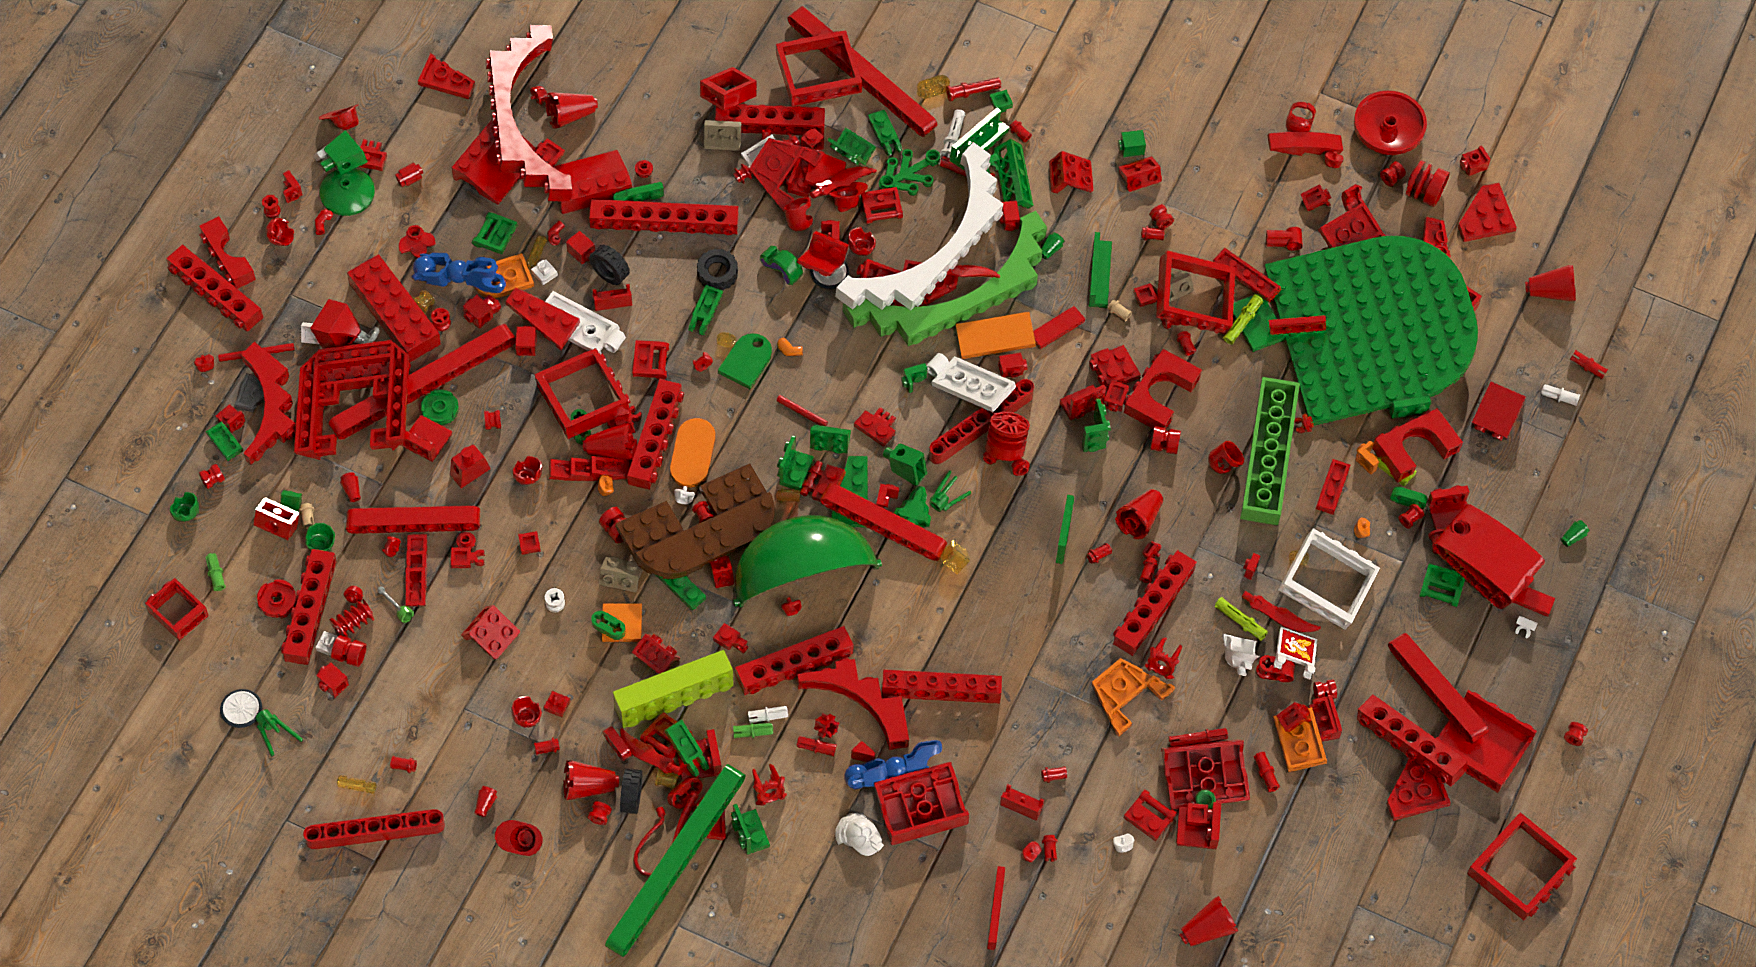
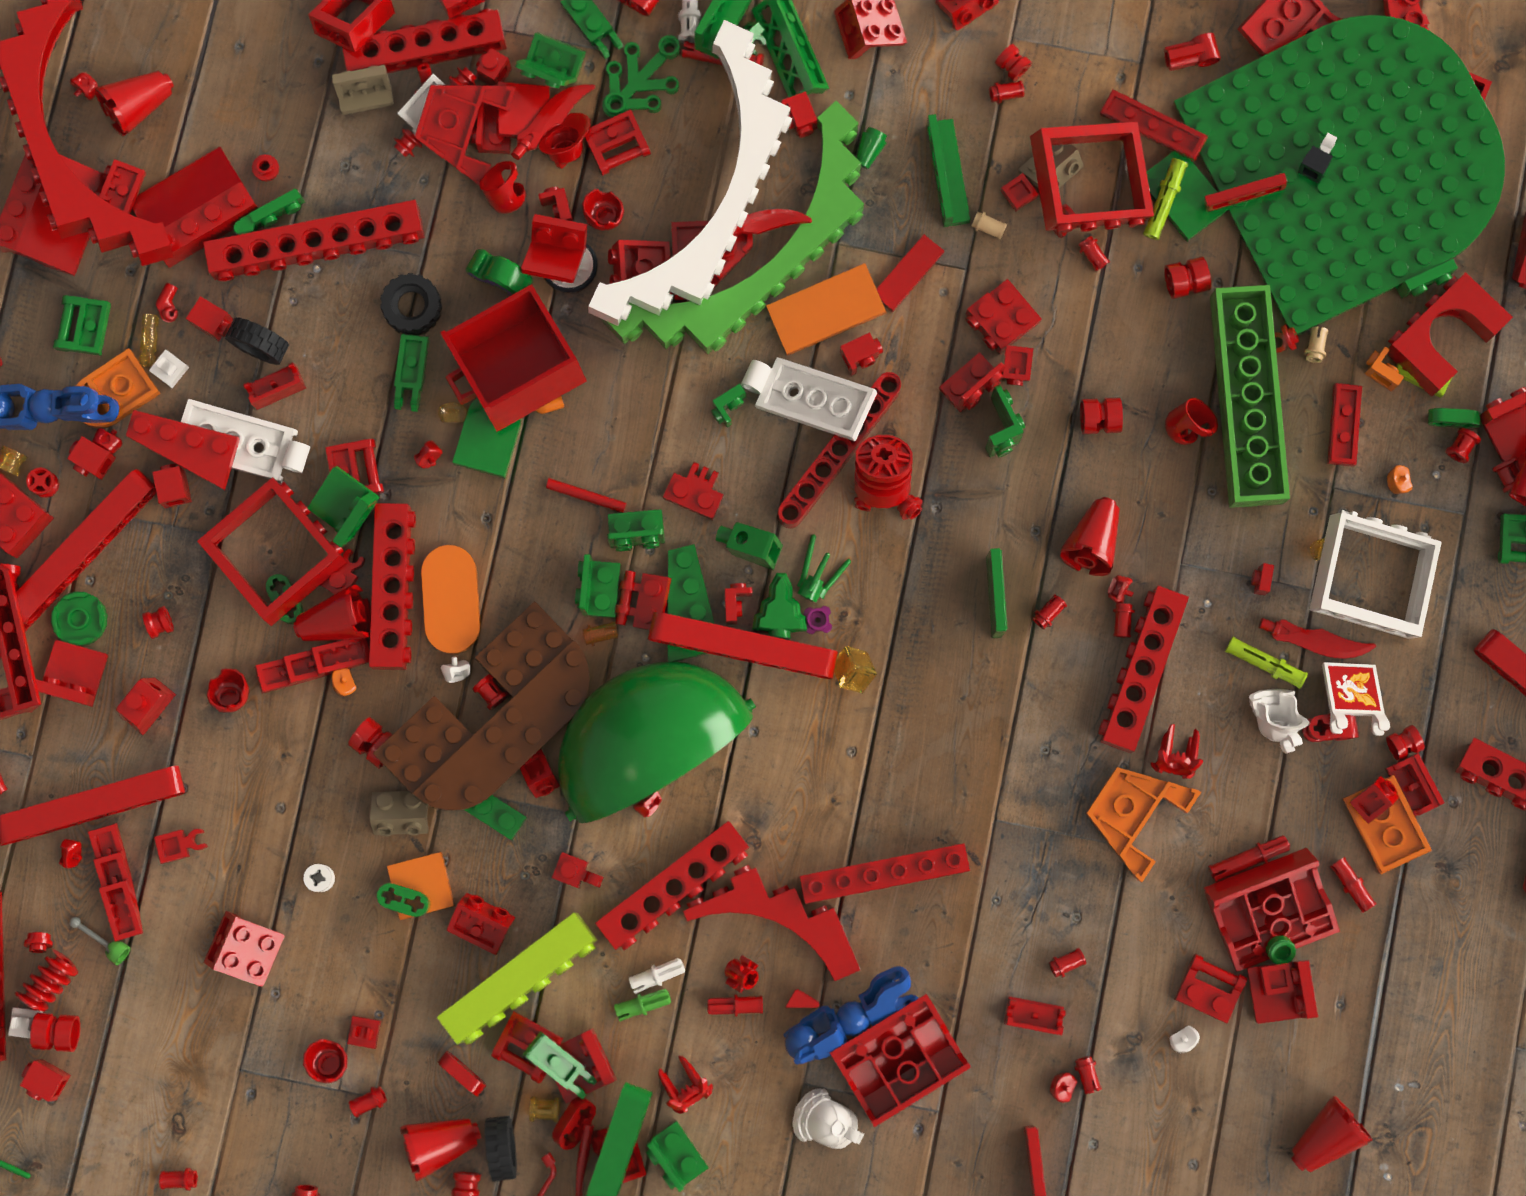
camera: 10 degrees left, 20 degrees up
(466, 535) = (179, 821): red plate -> none
(529, 543) = (260, 799): red plate -> none
(638, 374) = (343, 504): none -> green bracket
(648, 754) = (508, 1080): red sword -> none
(776, 312) = (512, 358): none -> red container
(935, 517) = (822, 613): none -> magenta plate
(1163, 368) = (1053, 366): red arch -> none
(1246, 370) = (1185, 278): none -> red wheel
(1324, 435) = (1316, 346): none -> tan pin
(1349, 314) = (1318, 160): none -> black piece

